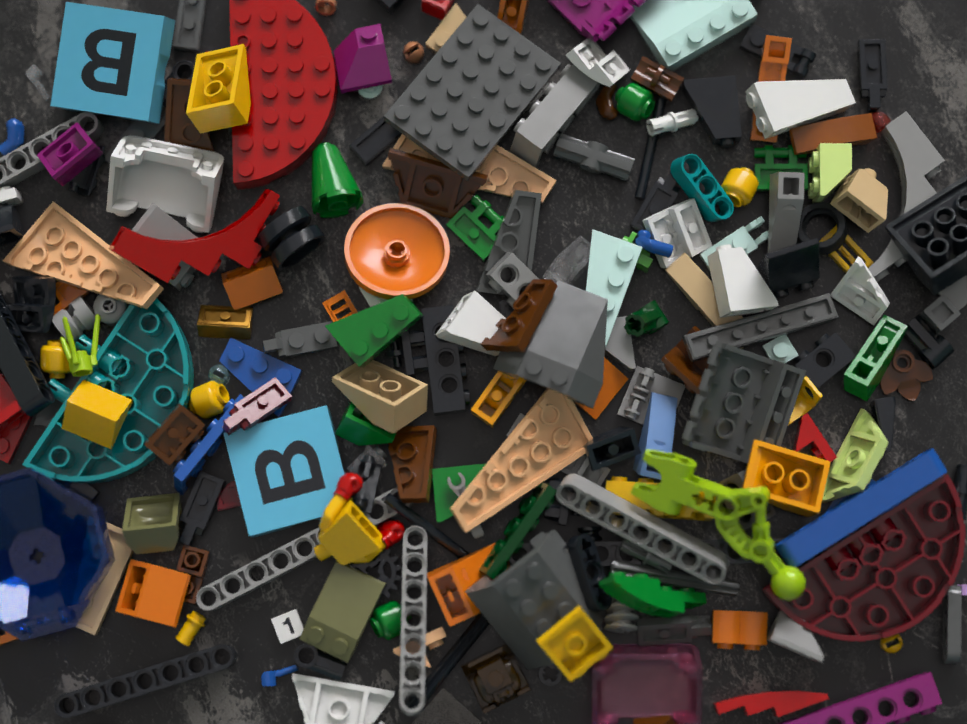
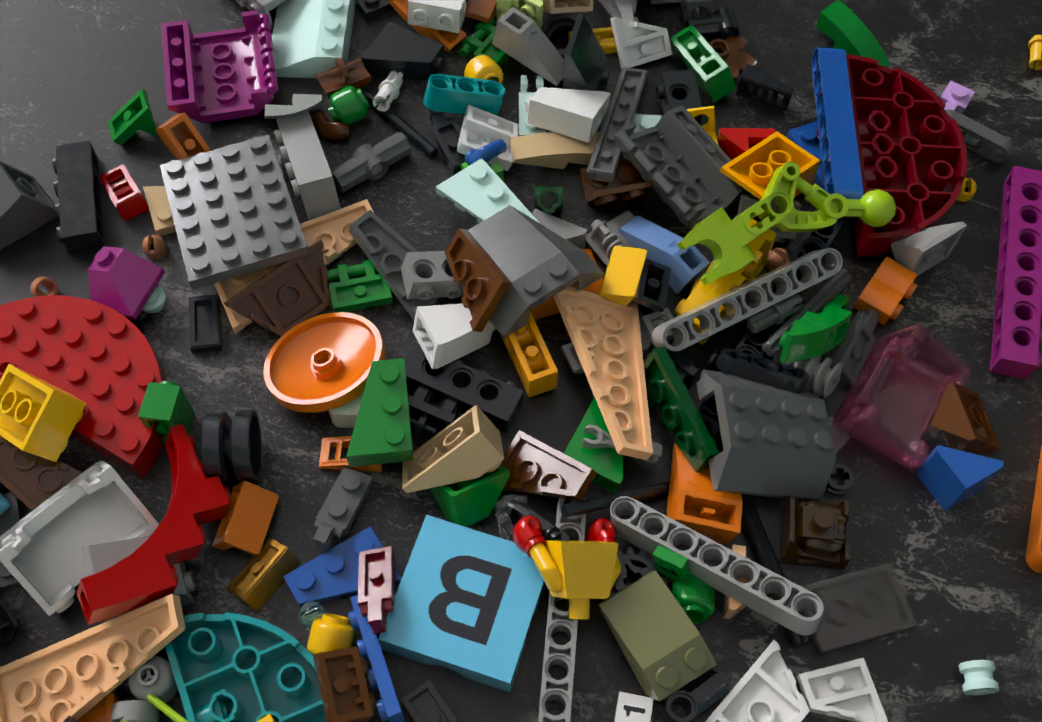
camera: 65 degrees left, 20 degrees down
(229, 498) = (450, 686): dark red tile -> none
(285, 174) = (166, 405): none -> green brick
(332, 183) = (214, 379): green cone -> none
(396, 591) = (671, 564): none -> green tile
(570, 262) = (447, 224): clear slope -> none
(575, 644) = (834, 415): yellow plate -> none
(608, 421) = (623, 274): none -> yellow slope
(711, 528) = (777, 258): none -> nougat hinge
(779, 701) = (974, 304): red slope -> none
(855, 458) = (785, 110): yellowish green wing -> none

